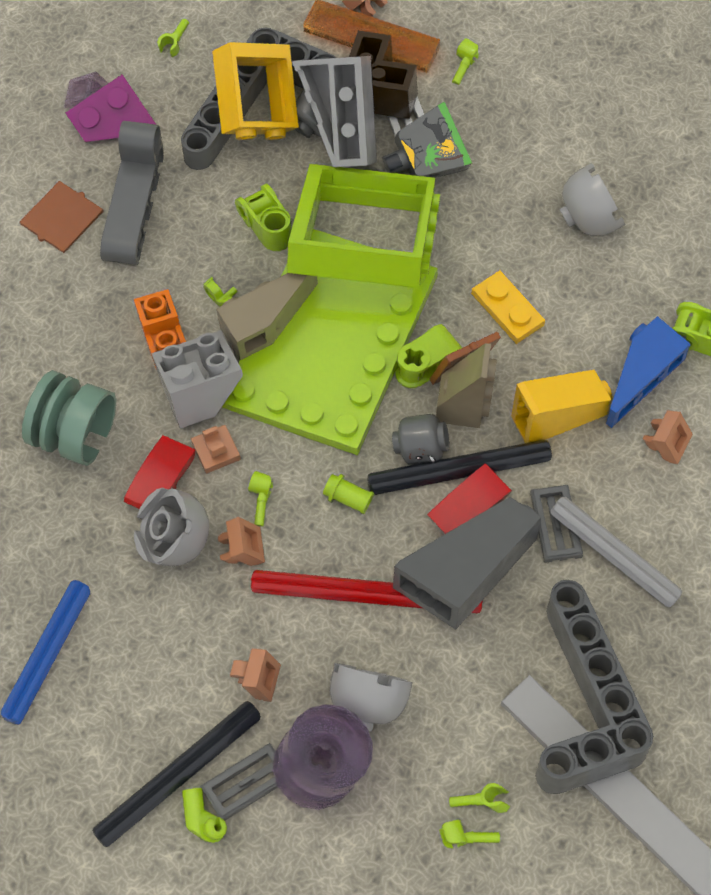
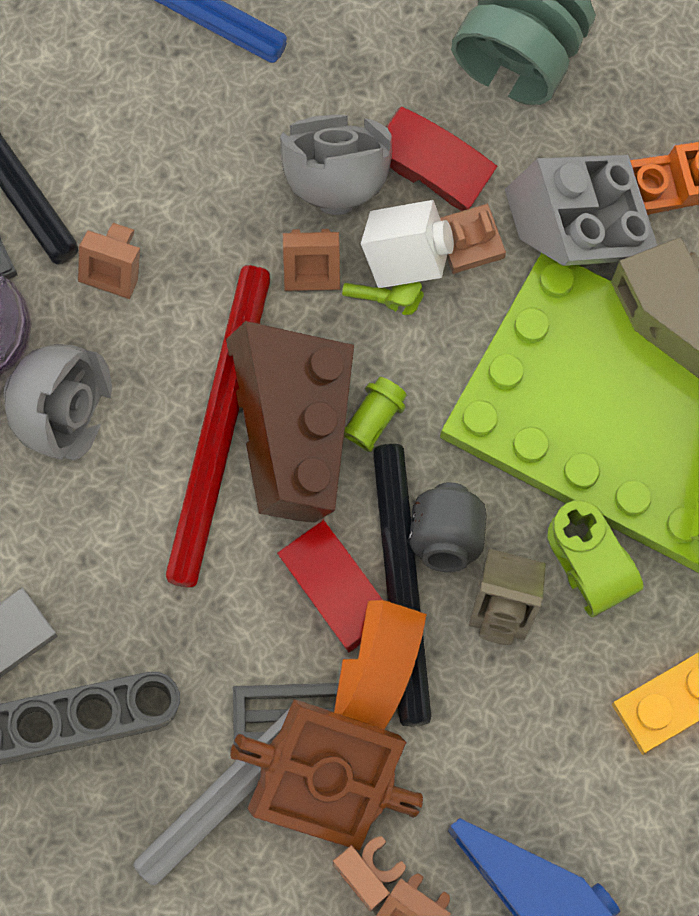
camera: 95 degrees right, 10 degrees up
(230, 476) = (406, 243): none -> white brick
(363, 534) = (293, 415): none -> reddish brown wedge
(455, 357) = (571, 603): dark orange piece -> none
(467, 562) = (232, 566): dark grey slope -> none
(534, 470) = (388, 651): none -> orange slope
(559, 404) = (481, 745): yellow slope -> none
(597, 488) = (326, 775): none -> dark orange plate
(652, 466) = (364, 876): none -> nougat tile

